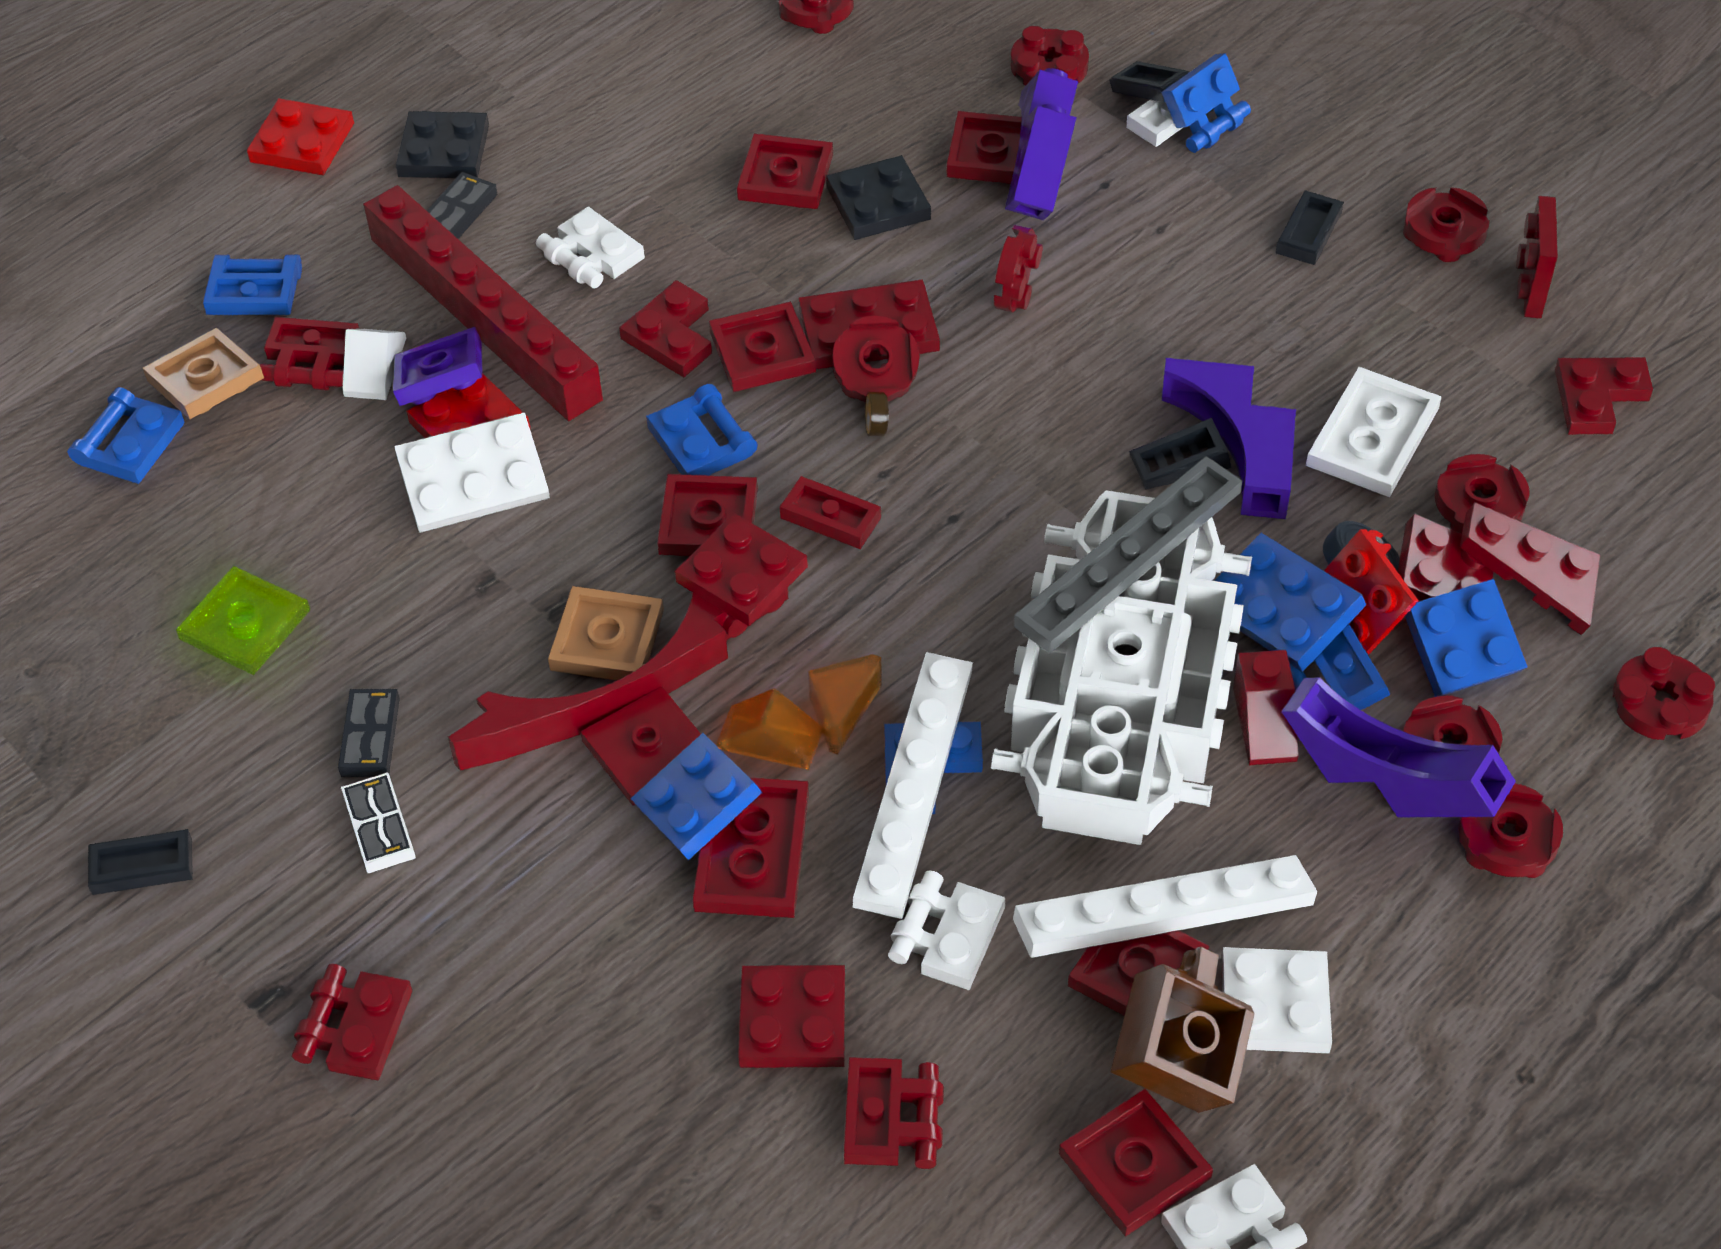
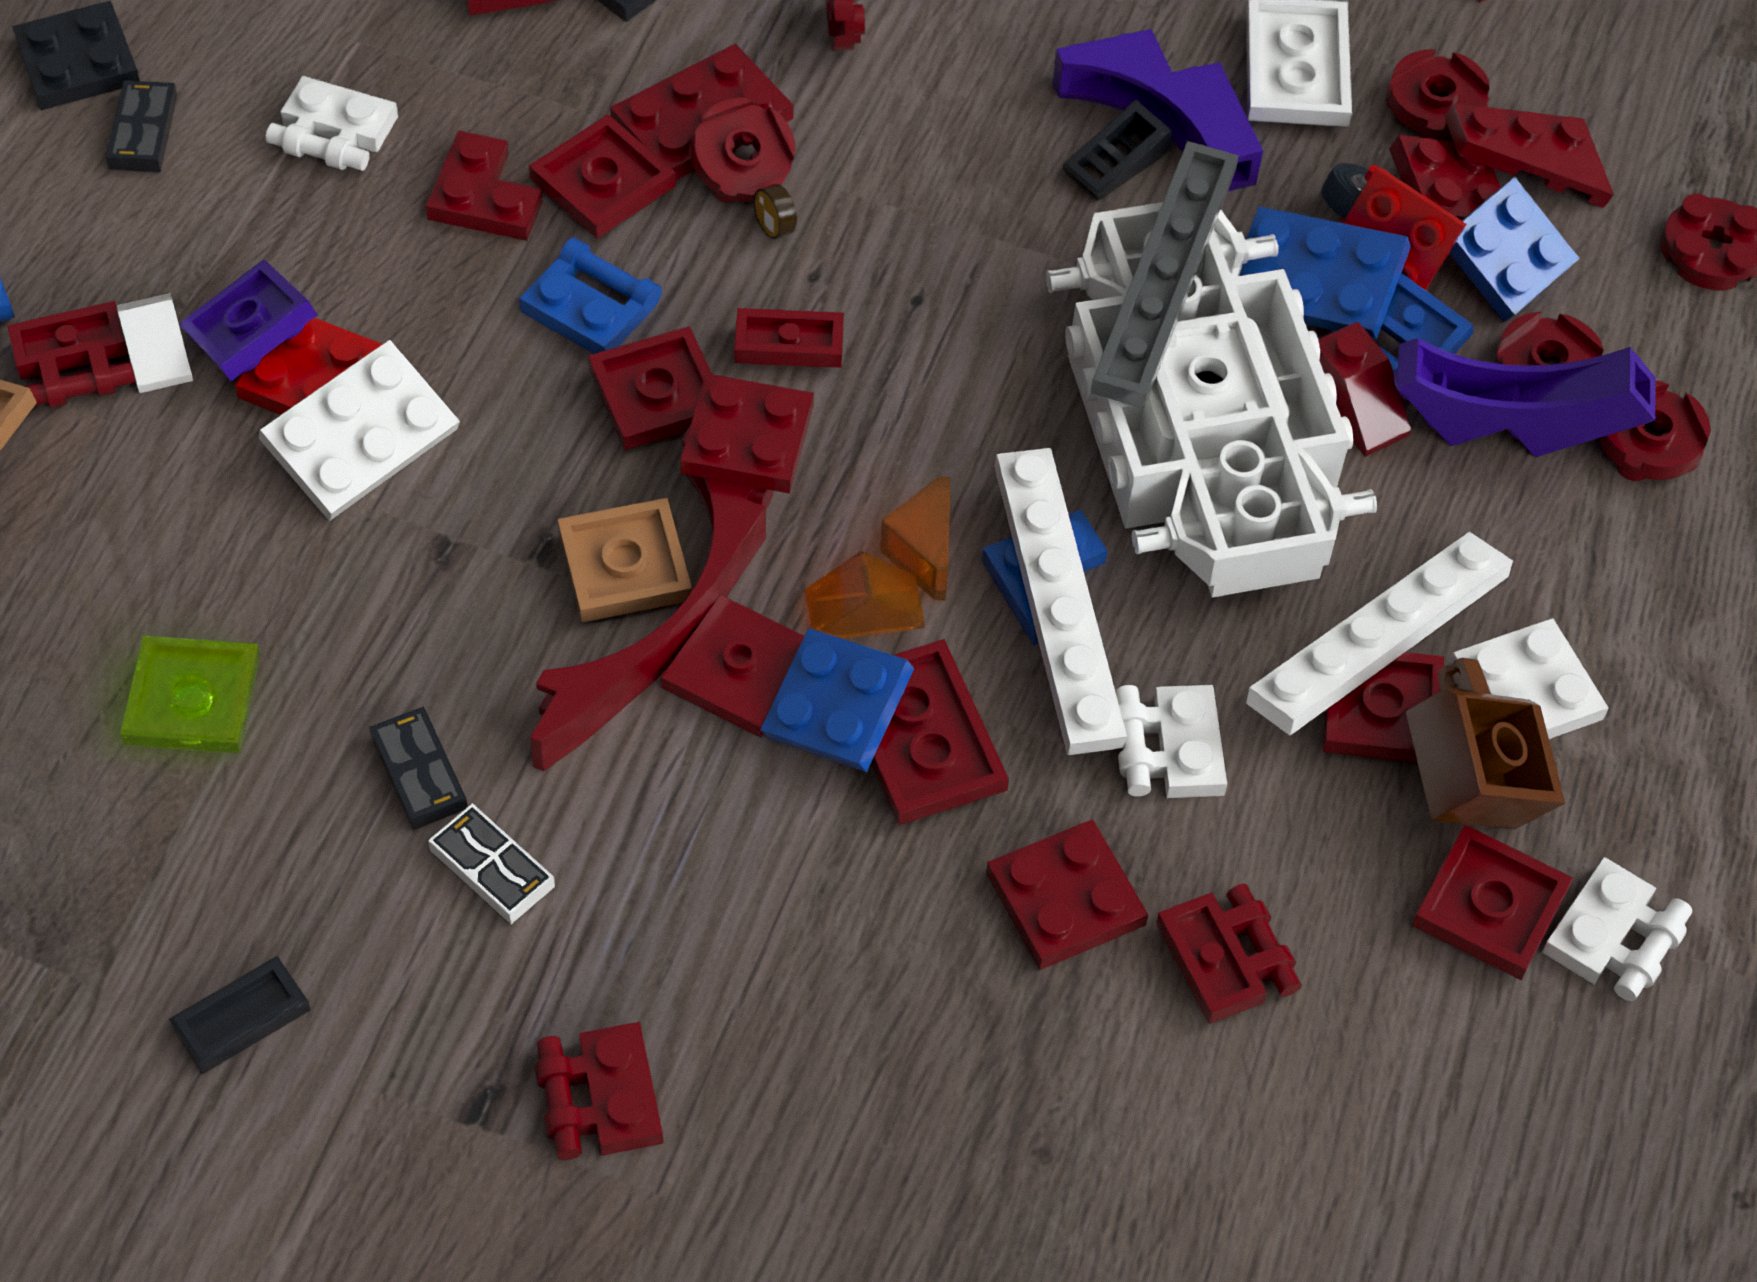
camera: 30 degrees left, 5 degrees up
(484, 301) = (248, 225): dark red brick -> none

